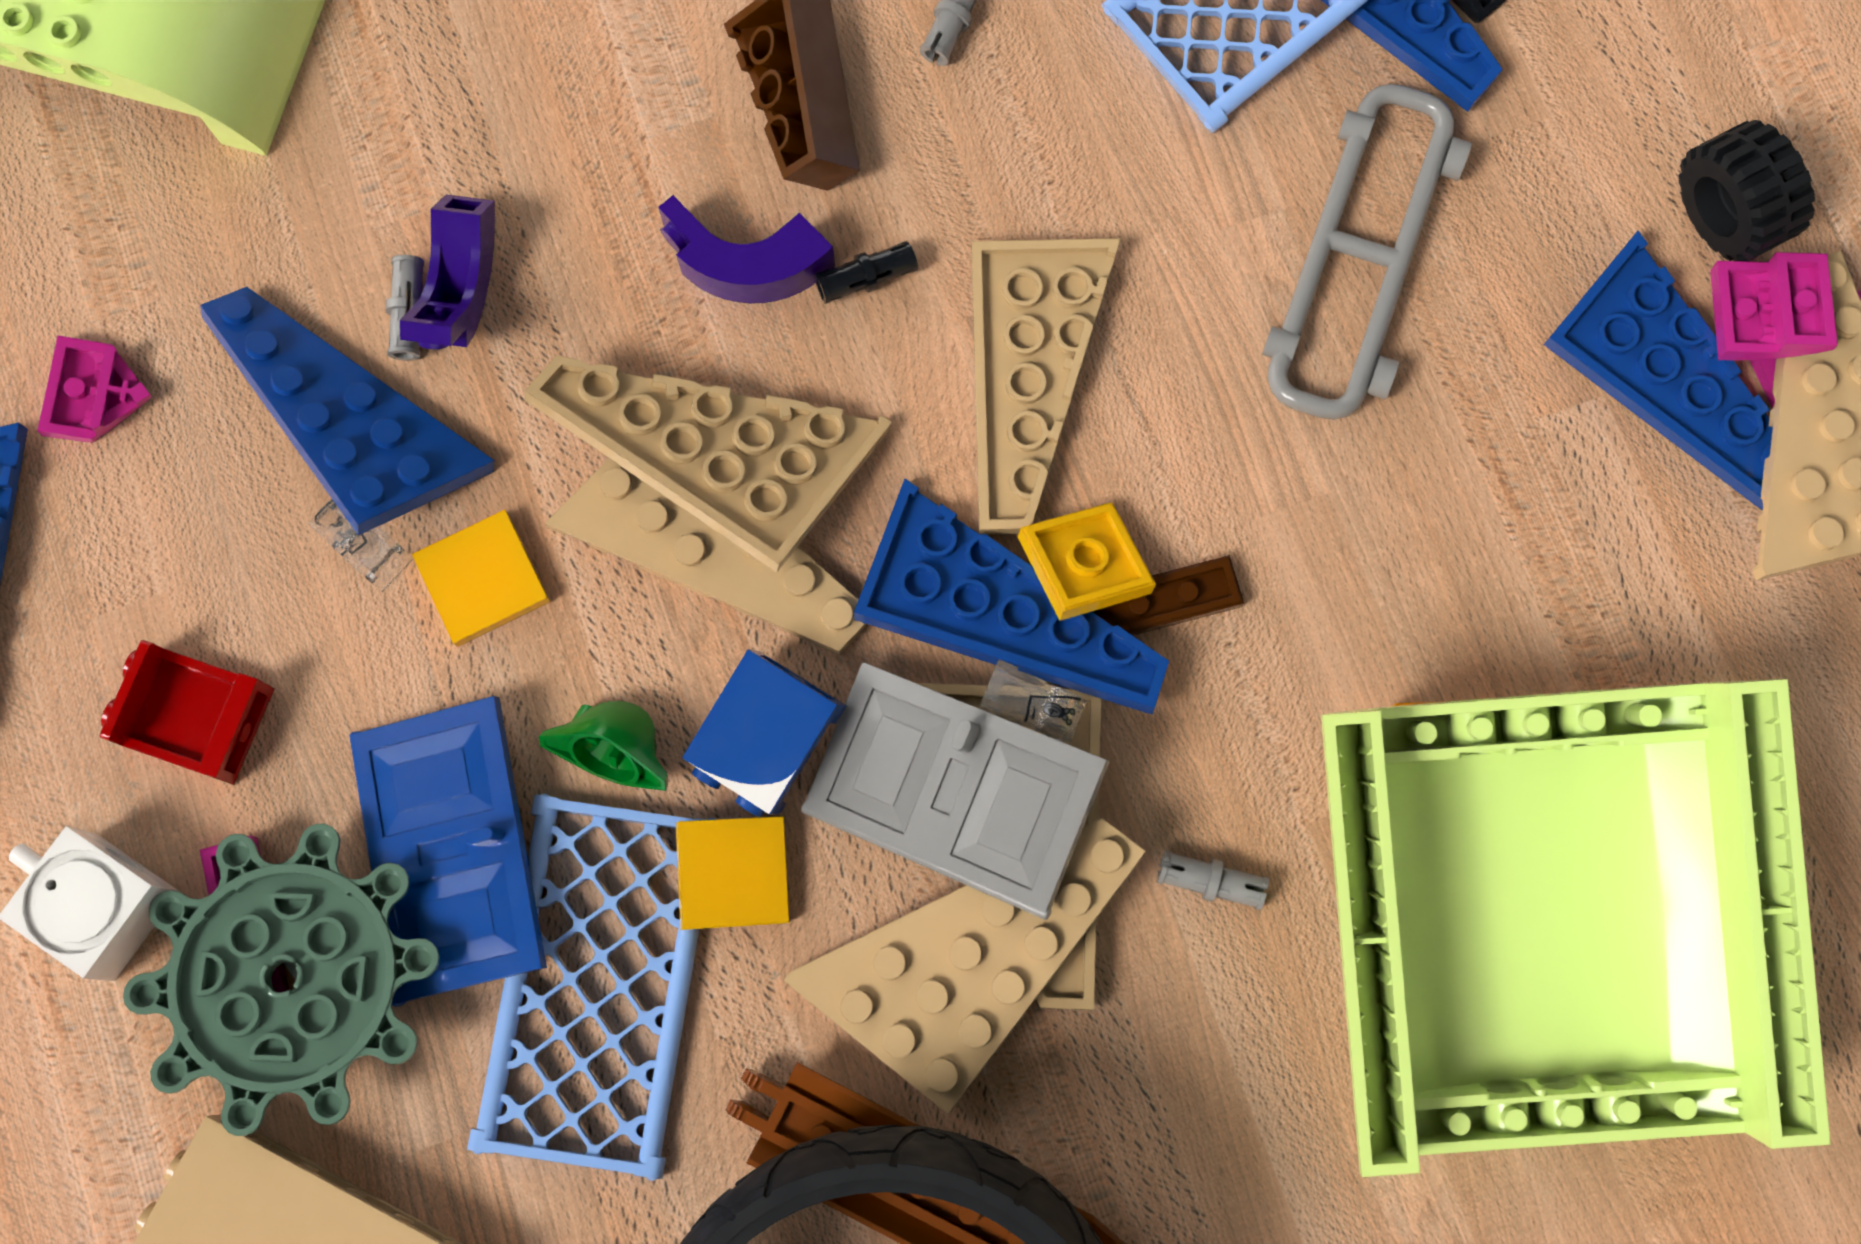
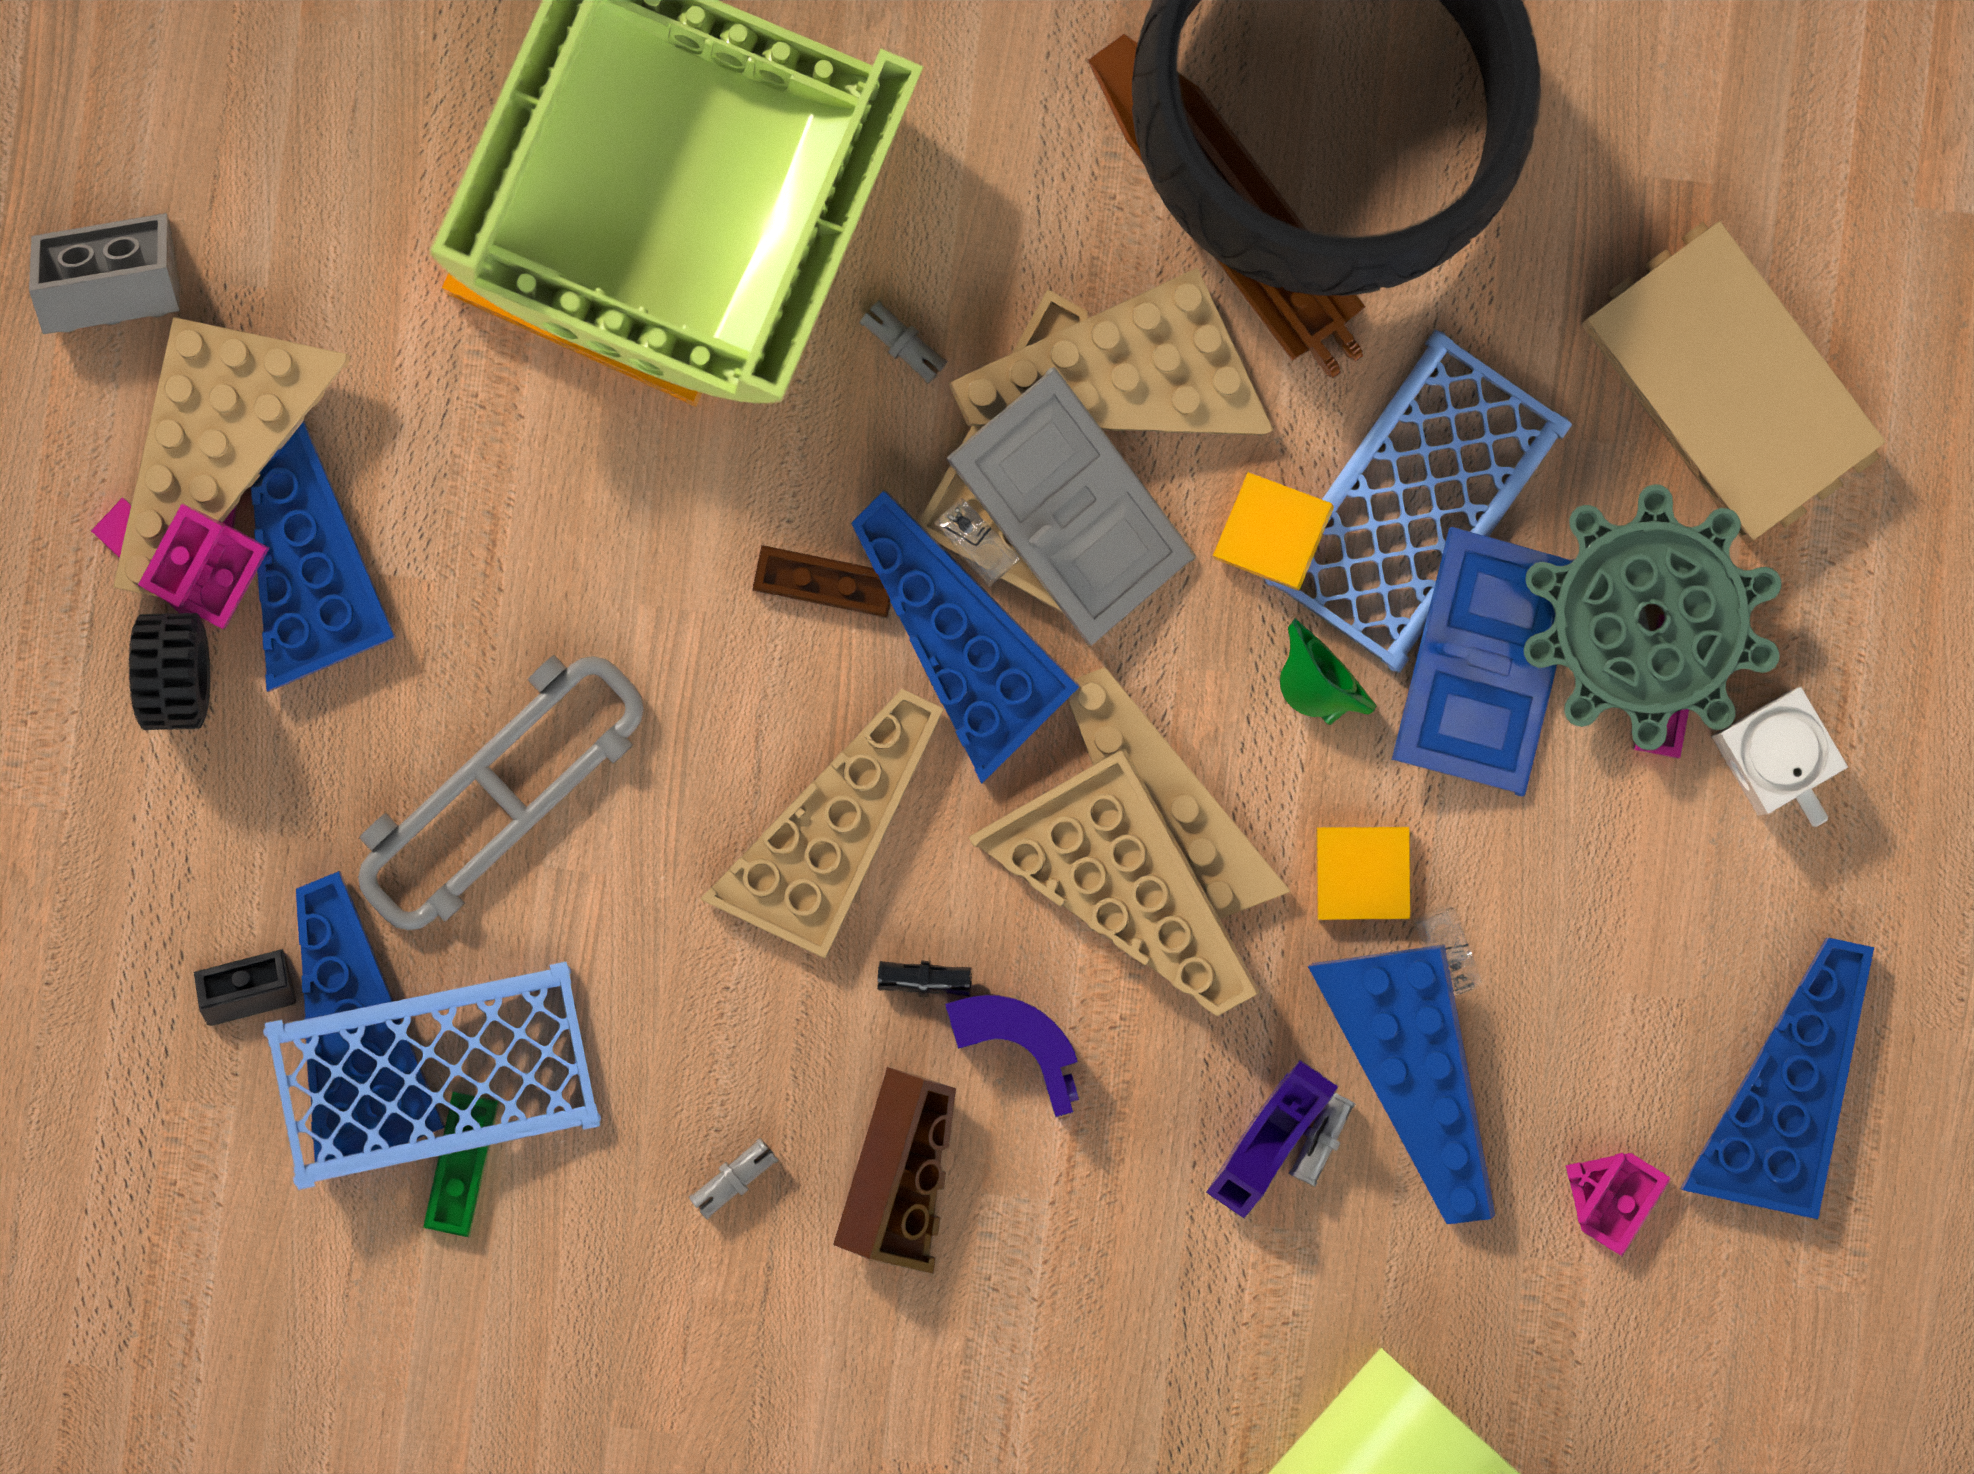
camera: 155 degrees left, 10 degrees up
(186, 712) = (1644, 875): red panel -> none
(761, 733) = (1197, 626): blue panel -> none
(1086, 561) = (872, 639): yellow tile -> none

